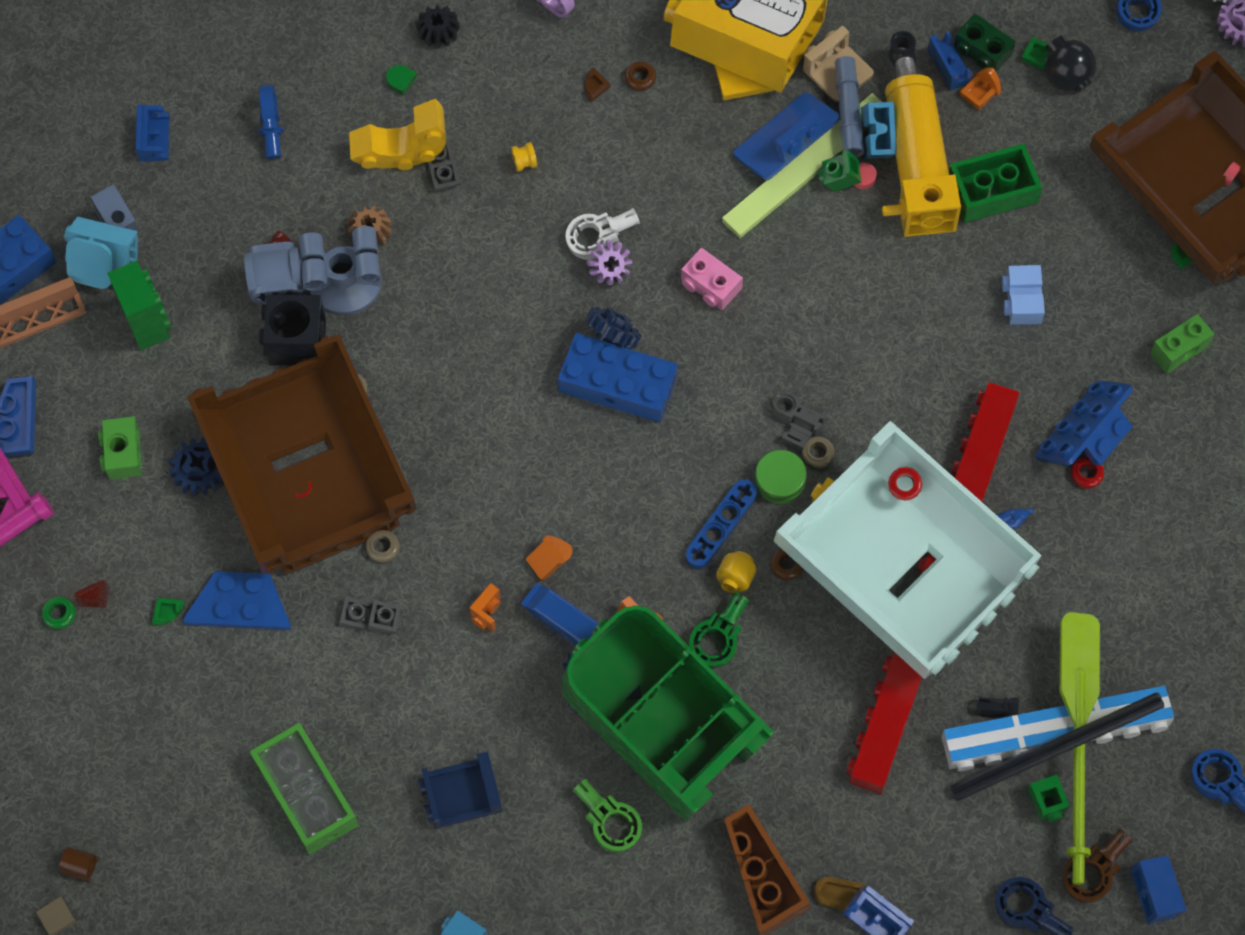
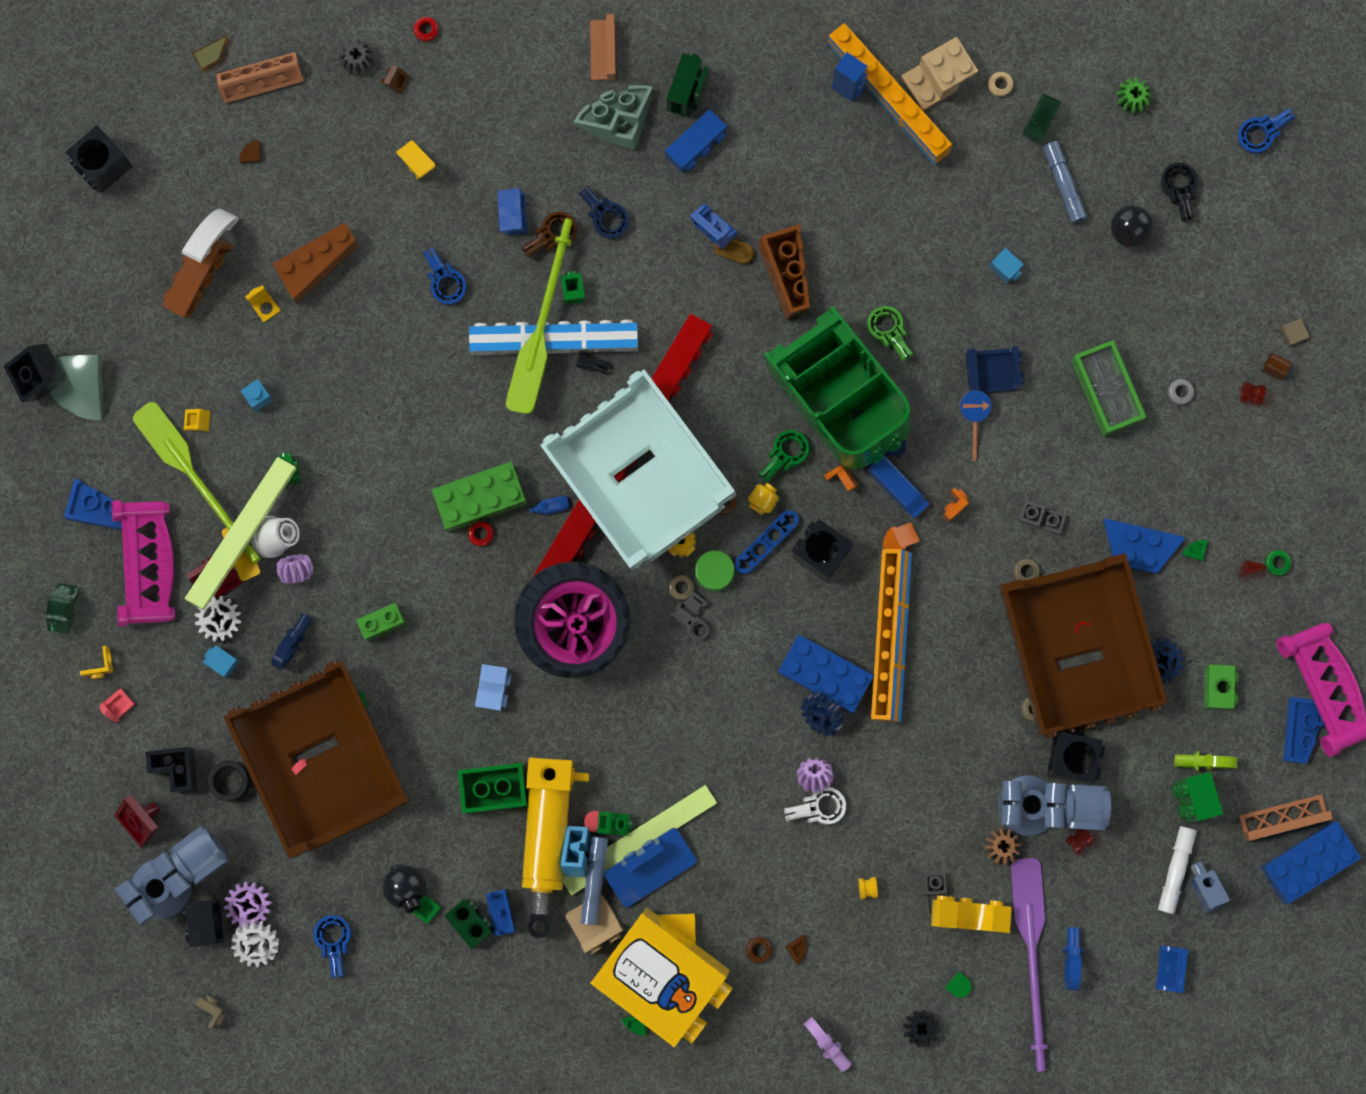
camera: 170 degrees left, 15 degrees up
(97, 249) = (1225, 854): medium azure brick -> none
(108, 820) = (1252, 393): none -> clear red wheel
(129, 356) = (1208, 761): none -> lime pin
(157, 232) = (1177, 870): none -> white piece
(210, 819) = (1178, 400): none -> light grey piece
(326, 158) = (1030, 919): none -> medium lavender piece
(479, 732) = (975, 407): none -> blue piece
(543, 434) = (891, 635): none -> light orange brick
(642, 494) = (824, 569): none -> black brick
(711, 279) = (736, 747): bright pink brick -> none
(905, 472) = (627, 516): red piece -> none
(932, 393) = (610, 612): none -> wheel
(982, 88) = (481, 883): orange tile -> none
(1057, 746) = (559, 315): black axle -> none
(1091, 426) = (472, 565): blue bracket -> none
(1101, 511) = (479, 496): none -> bright green brick

